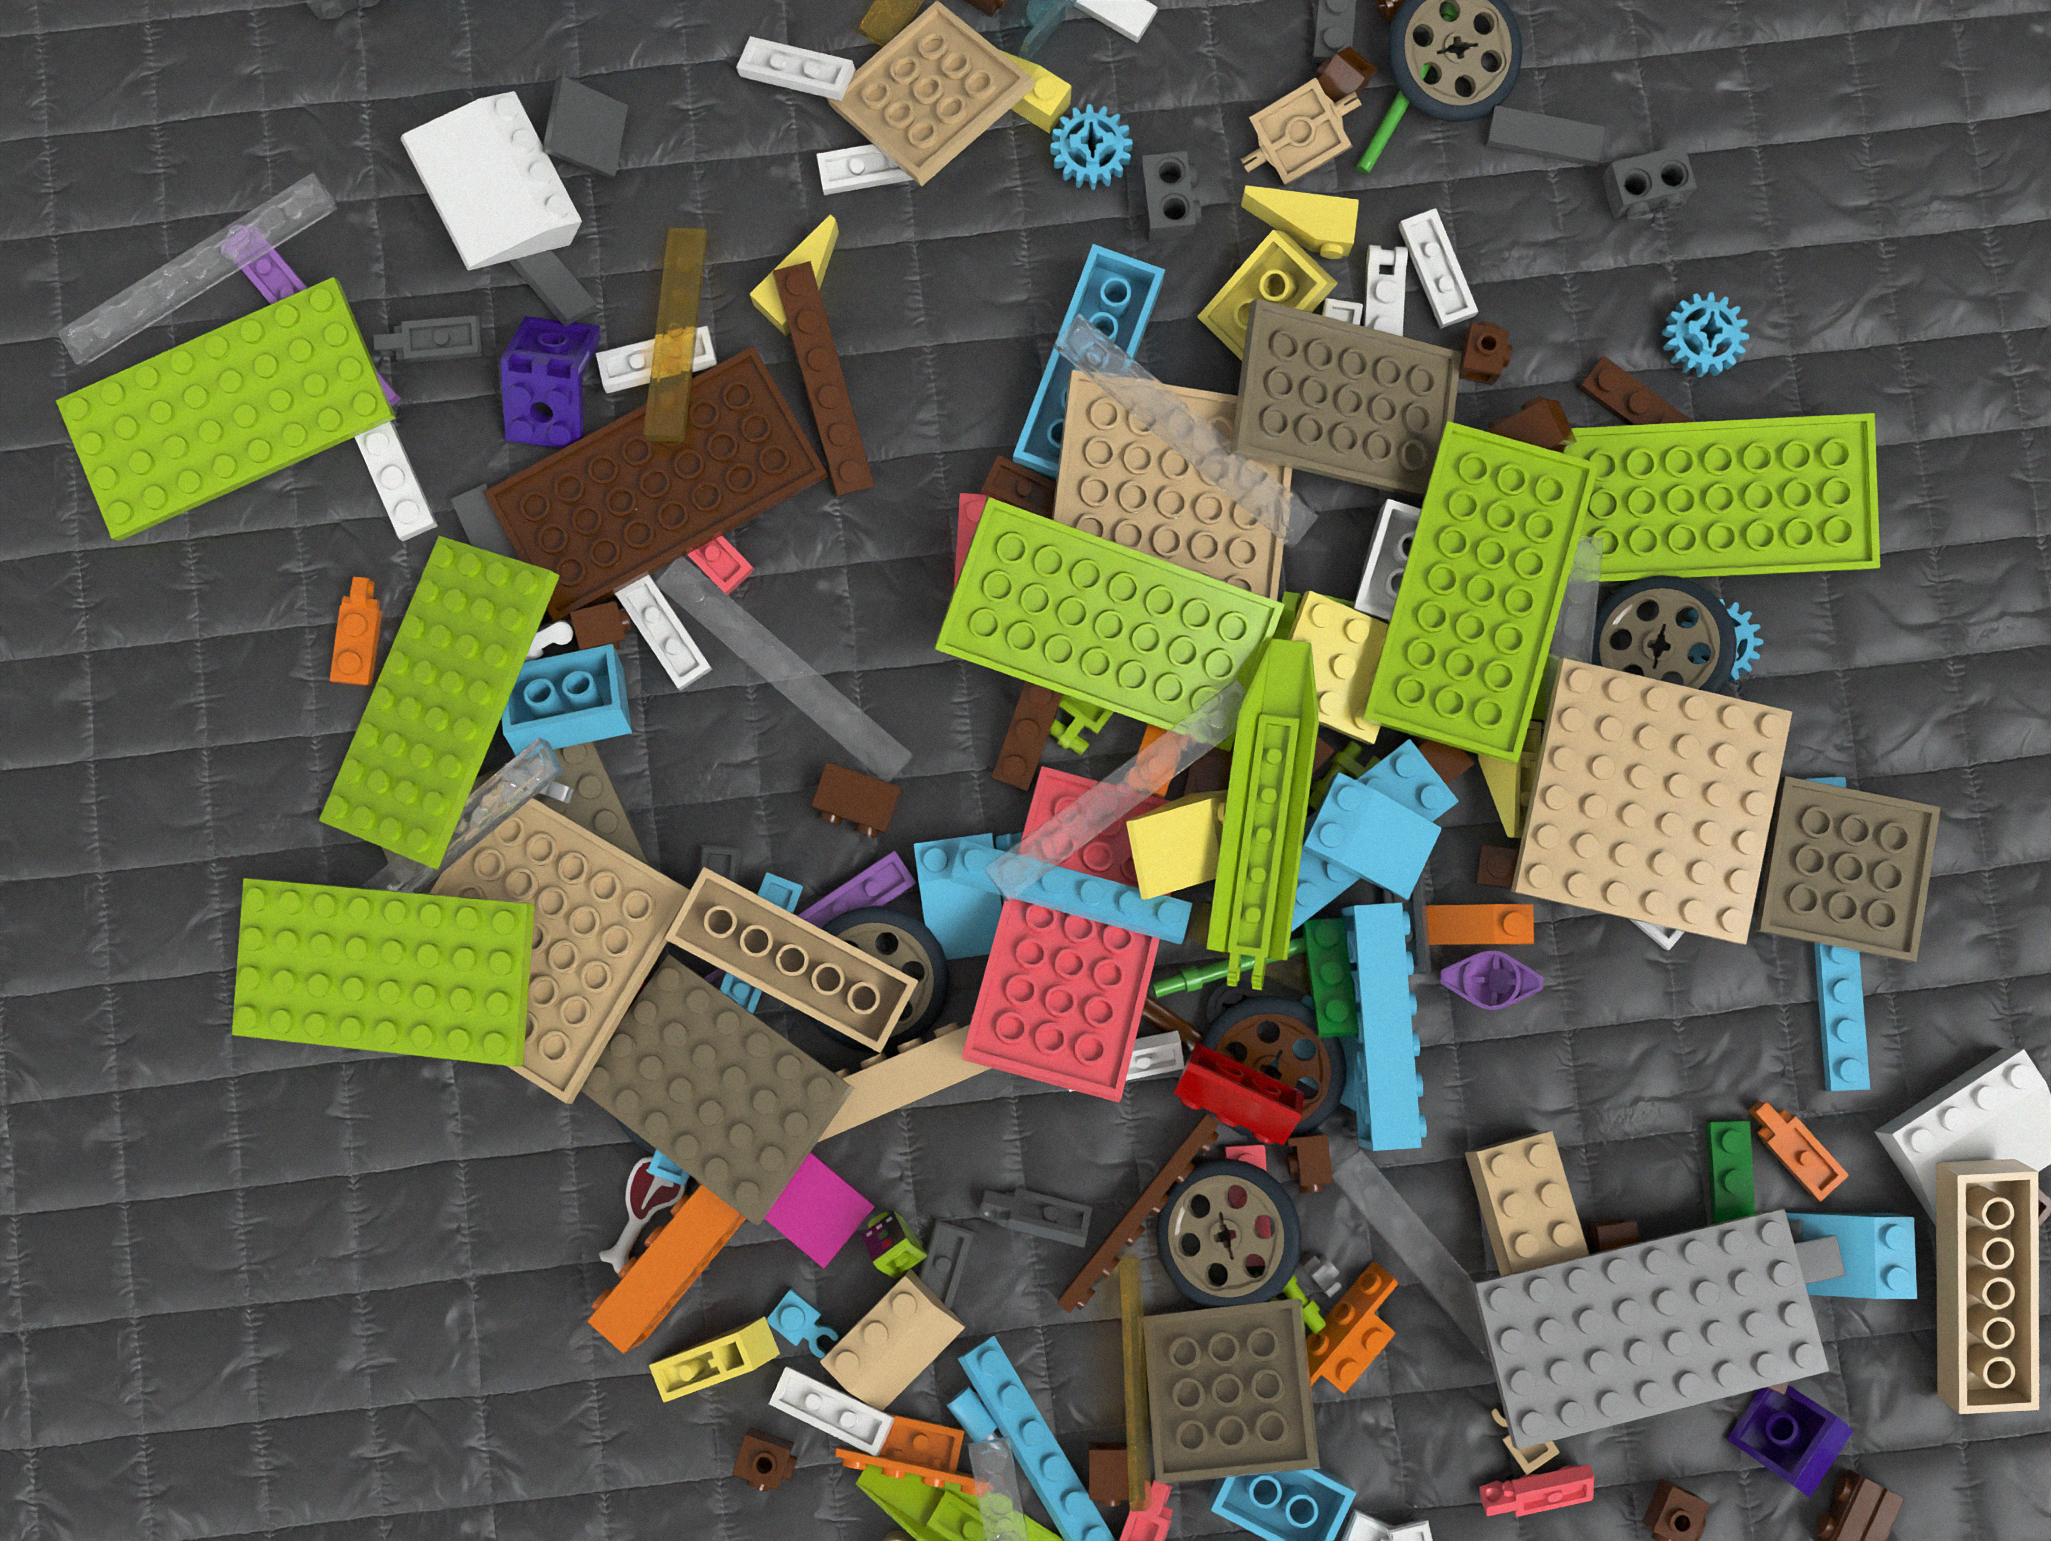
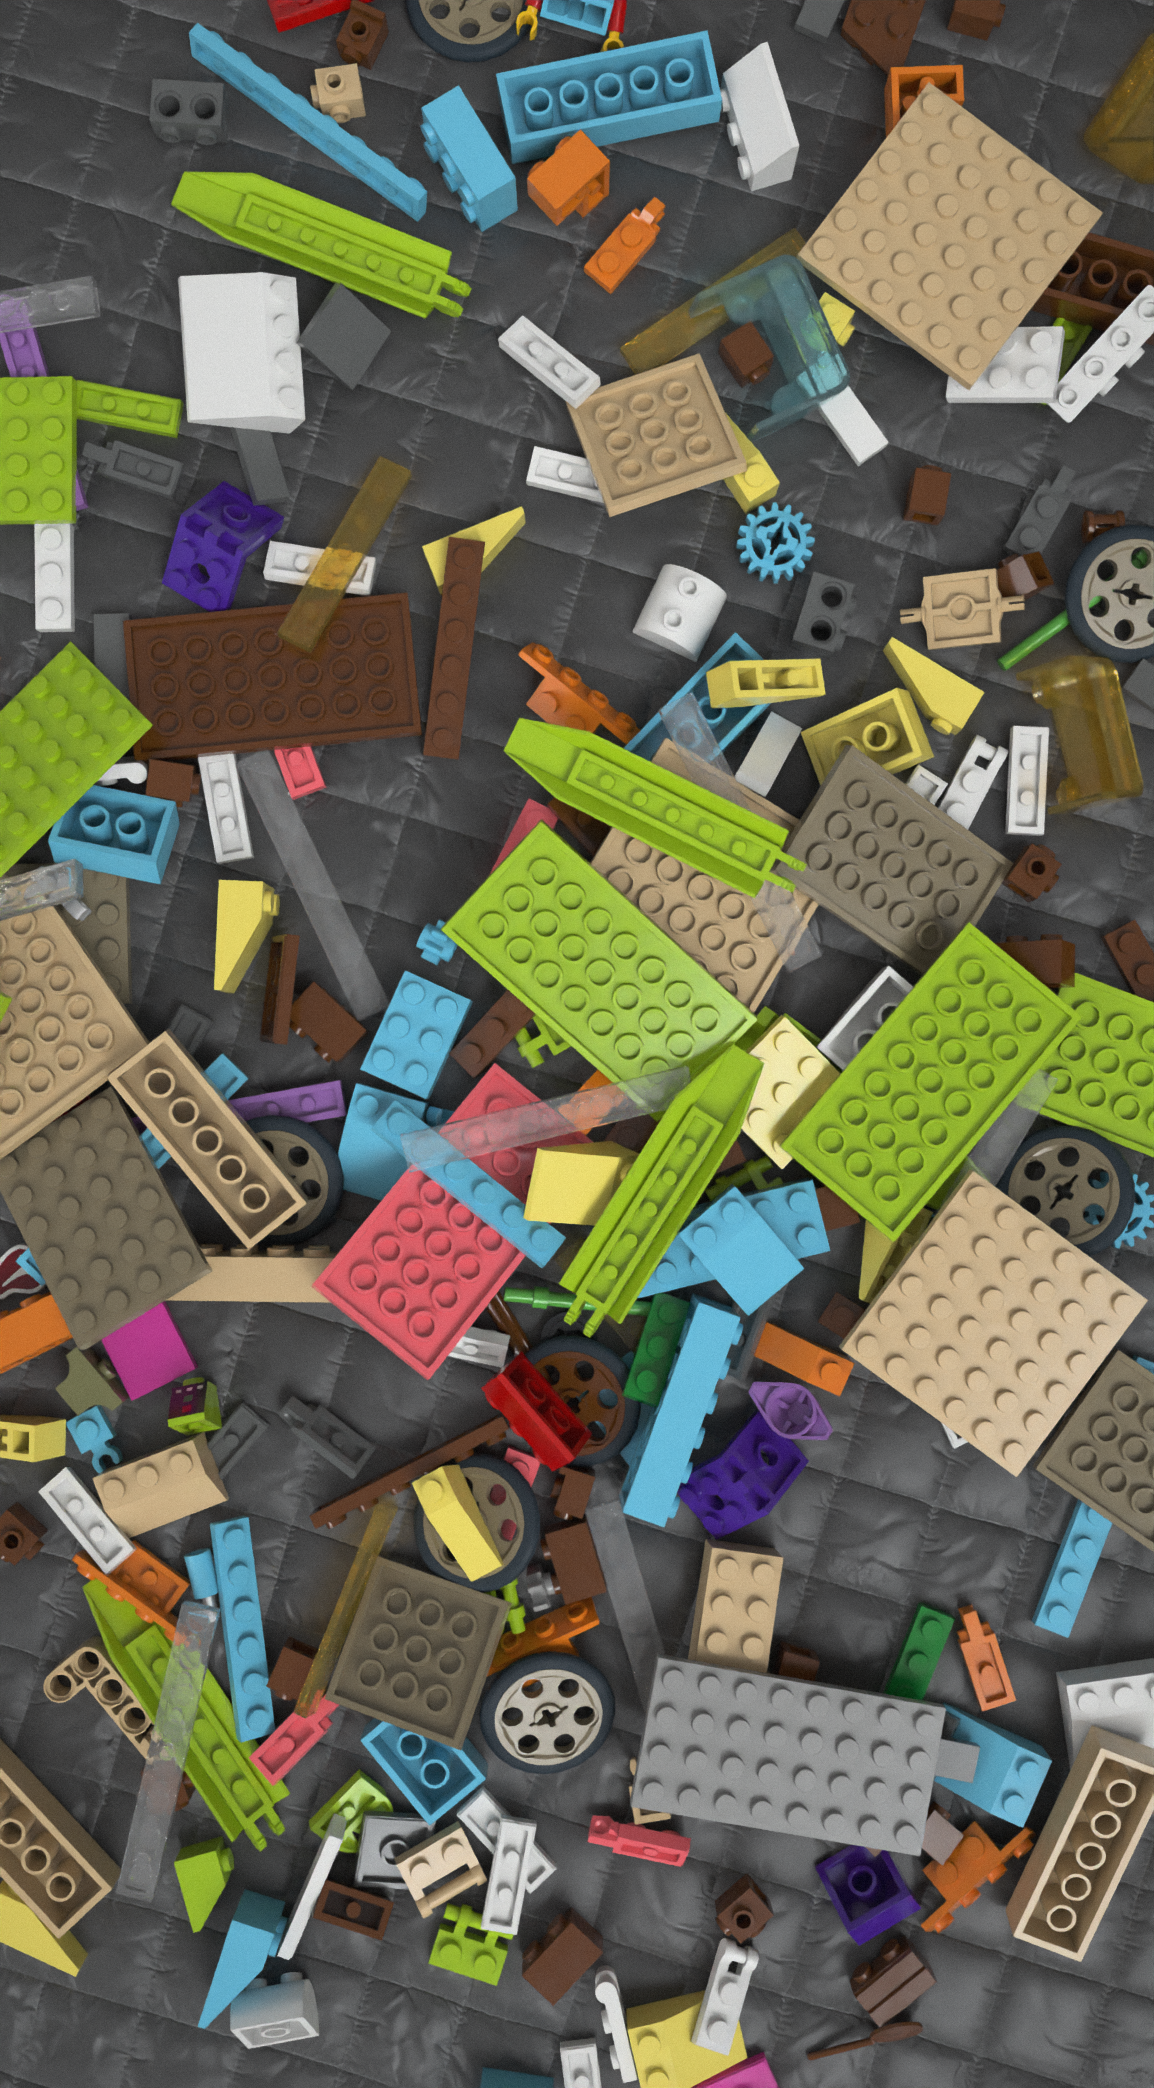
camera: 25 degrees right, 5 degrees up
(401, 287) = (128, 409): none -> lime tile
(523, 46) = (322, 239): none -> lime hinge
(732, 734) = (242, 924): none -> light yellow slope
(774, 1267) = (90, 1382): none -> olive brick
(796, 784) = (279, 989): none -> reddish brown tile
(932, 672) = (436, 944): none -> medium azure gear
(952, 771) = (416, 1035): none -> medium azure brick
(961, 386) = (570, 703): none -> orange bracket
(1028, 250) = (681, 611): none -> white brick
(1089, 437) = (653, 805): none -> lime hinge
(1142, 277) = (764, 682): none -> light yellow slope
(1176, 347) = (768, 754): none -> white tile
(1210, 1239) = (457, 1520): none -> light yellow slope
(1217, 40) = (927, 495): none -> reddish brown brick
(1336, 1395) = (550, 1669): none -> wedge
(1343, 1229) = (574, 1559): none -> reddish brown brick
(1474, 1071) = (742, 1478): none -> dark purple bracket
(1475, 193) = (1091, 731): none -> clear yellow windscreen
(1839, 1345) = (939, 1835): none -> brick
(1879, 1368) = (968, 1868): none -> orange bracket

